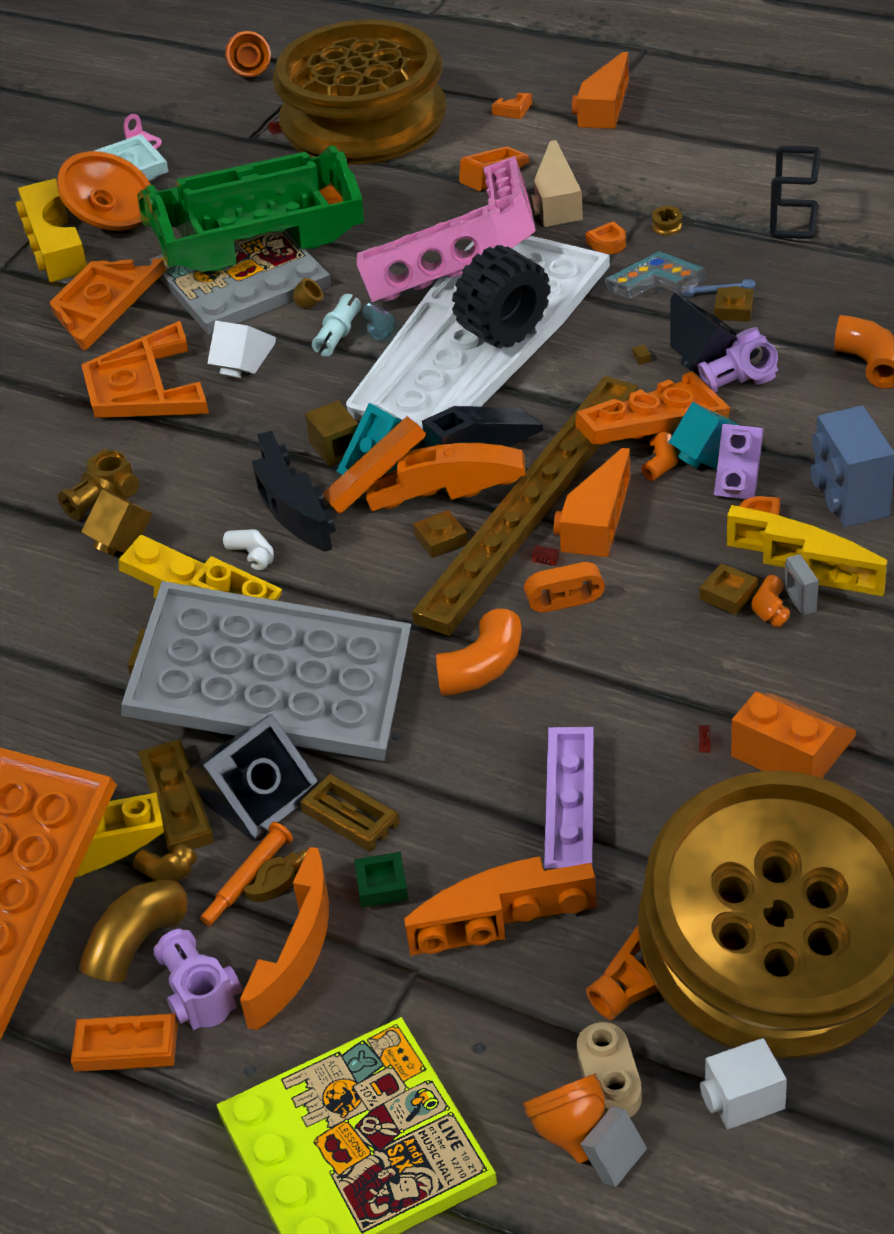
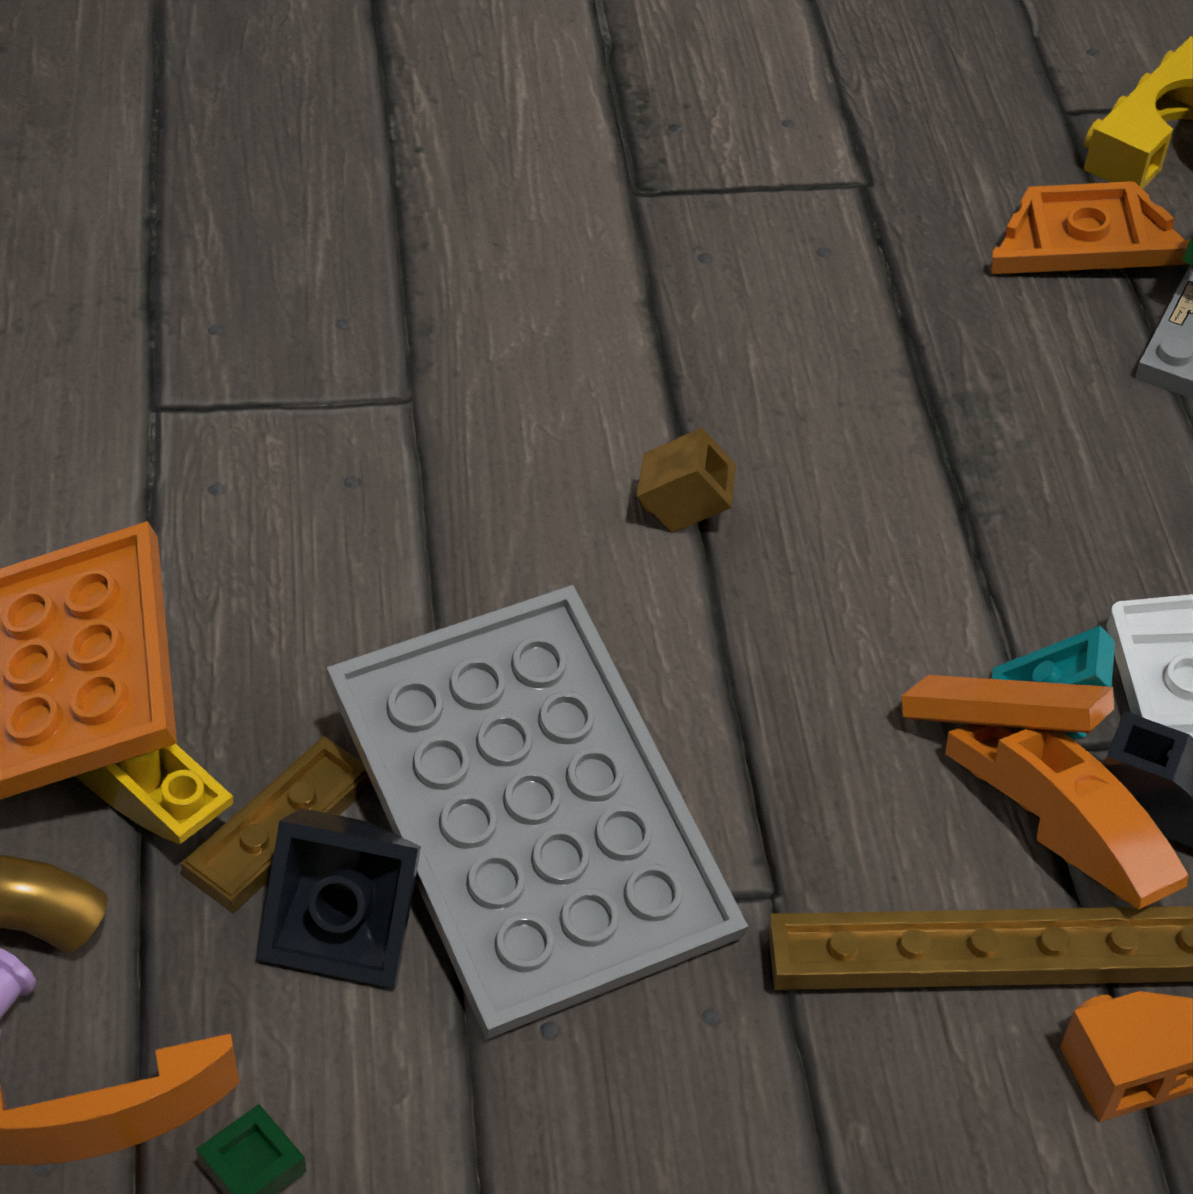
camera: 50 degrees right, 5 degrees up
(104, 471) = (762, 426): pearl gold connector -> none
(129, 382) = (967, 340): orange wing -> none
(156, 563) = (652, 627): yellow slope -> none
(170, 867) = (144, 882): pearl gold arm -> none
(238, 348) = (1118, 423): white slope -> none
(247, 871) = (189, 982): orange piece -> none
(252, 540) = (776, 646): white arm -> none
(274, 877) = (202, 1018): pearl gold piece -> none
(291, 495) = (893, 633): black slope -> none
(330, 431) = (1048, 612): pearl gold brick -> none
(344, 818) = (356, 1102): pearl gold tile -> none
(440, 533) = (967, 864): pearl gold plate -> none
(485, 658) = (748, 1063): orange cylinder -> none
(545, 555) = (1031, 1030): clear red piece -> none
(564, 587) = (969, 1093): orange beam -> none

